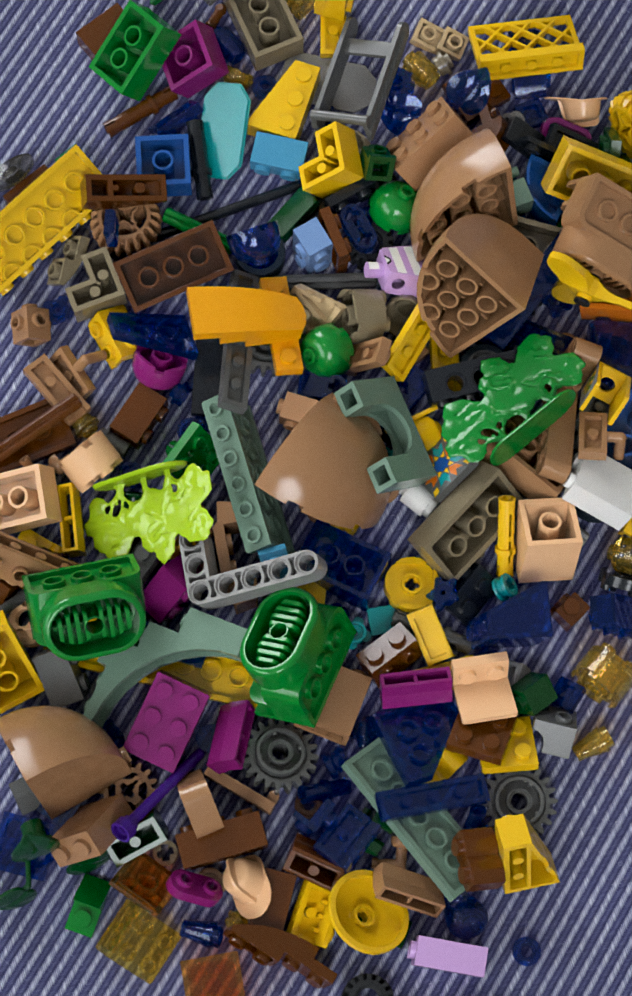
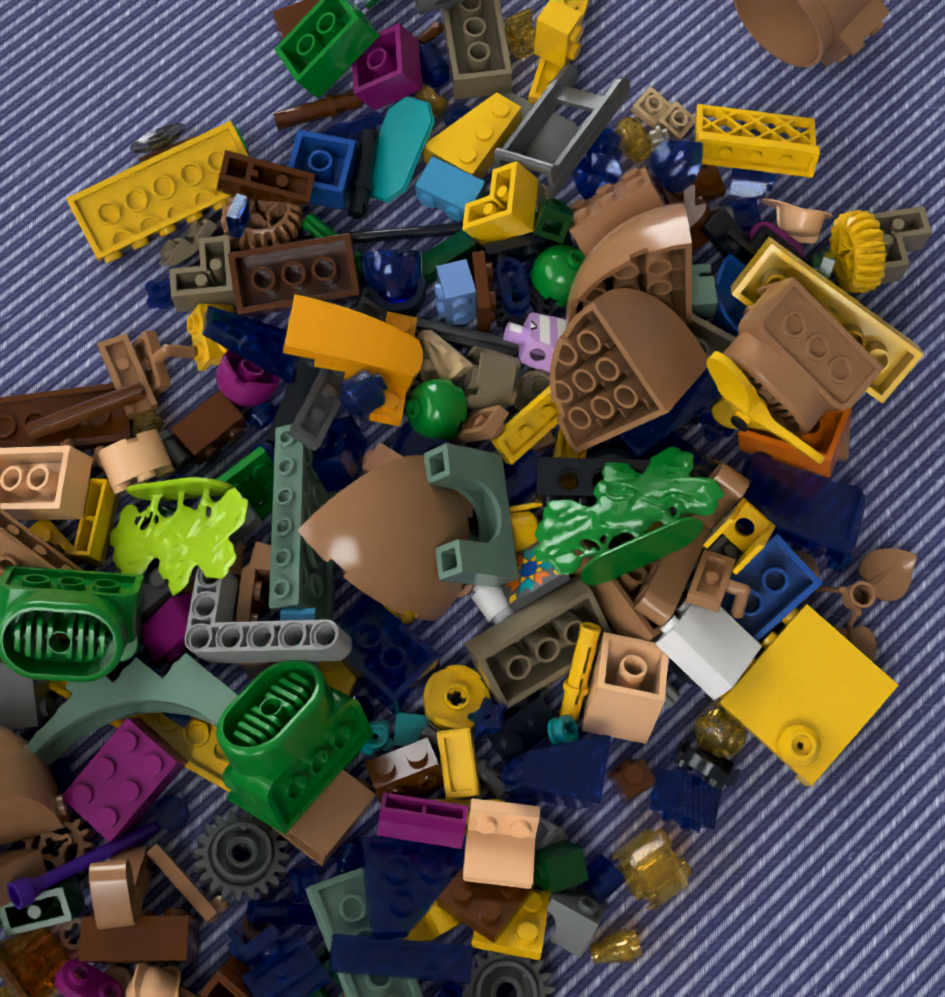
camera: 20 degrees right, 5 degrees down
(30, 326) = (123, 301): medium nougat brick -> none
(231, 736) = (191, 818): magenta piece -> none
(261, 416) = (340, 454): none -> clear blue brick
(267, 355) = (362, 393): none -> clear blue head

